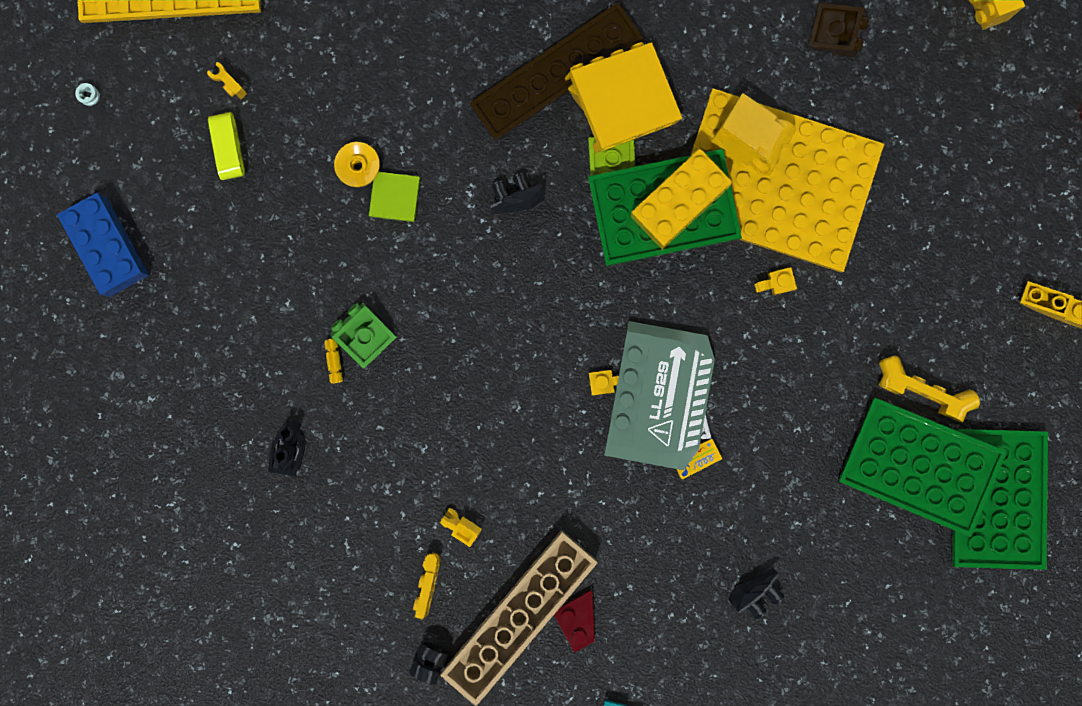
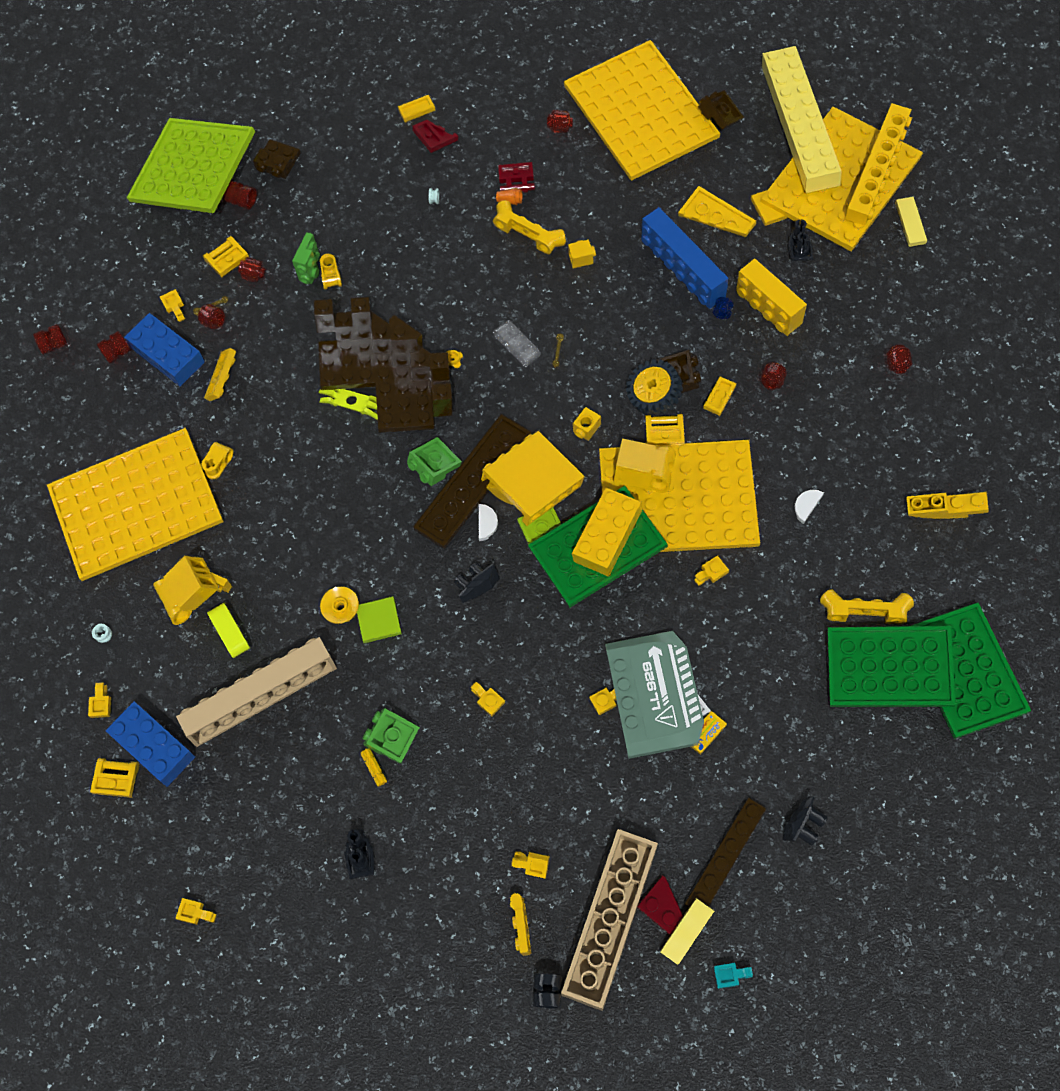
camera: 10 degrees left, 20 degrees down
(51, 273) = (112, 783): none -> yellow plate
(61, 178) = (100, 704): none -> yellow plate
(96, 443) = (192, 911): none -> yellow plate
(192, 80) = (185, 588): none -> yellow piece
(233, 232) = (256, 692): none -> tan brick
(482, 335) = (489, 700): none -> yellow plate
(519, 31) = (433, 461): none -> bright green plate
(554, 128) = (487, 522): none -> white tile
(592, 657) = (687, 931): none -> light yellow tile
(662, 595) = (727, 853): none -> dark brown plate
(713, 44) = (586, 417): none -> yellow brick
(792, 100) = (664, 434): none -> yellow plate
(806, 23) = (654, 387): none -> wheel
(874, 76) = (719, 396): none -> yellow plate
(914, 244) = (806, 503): none -> white tile
(946, 76) = (773, 376): none -> clear red head

